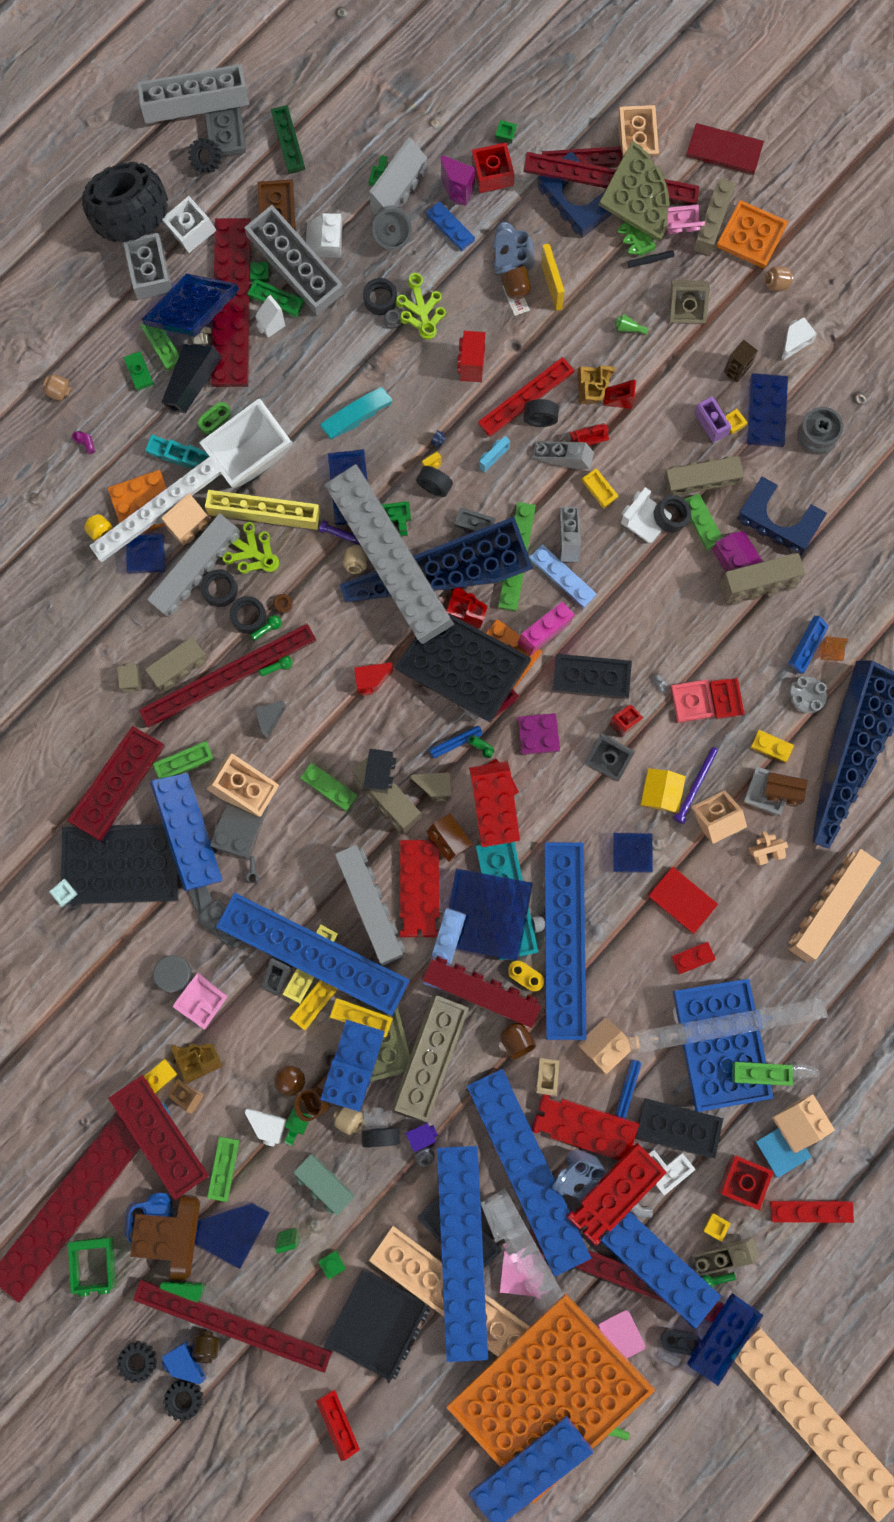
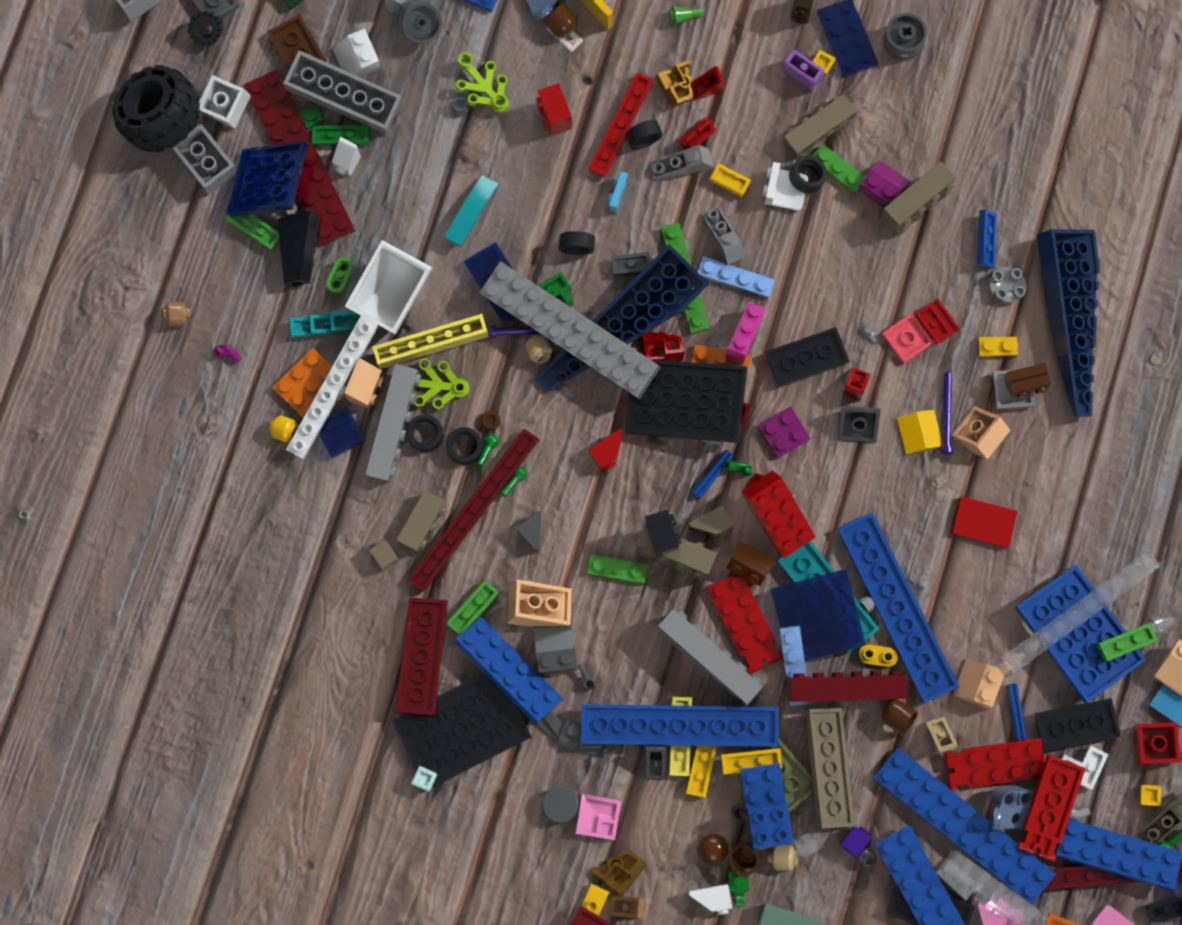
camera: 25 degrees left, 0 degrees up
(138, 371) = (244, 263): green plate -> none
(379, 283) = (435, 76): black tyre -> none
(380, 1137) = (820, 858): black tyre -> none
(434, 460) = (565, 225): yellow plate -> none
(438, 438) = (558, 200): dark blue plate -> none
(632, 852) = (920, 500): clear blue plate -> none
(693, 958) = (1018, 569): red plate -> none
(769, 845) = (1035, 438): light nougat hips -> none
(795, 537) = (884, 142): dark blue arch -> none
(833, 648) = (1010, 232): clear orange panel -> none
(833, 905) = (1119, 465): light nougat brick -> none

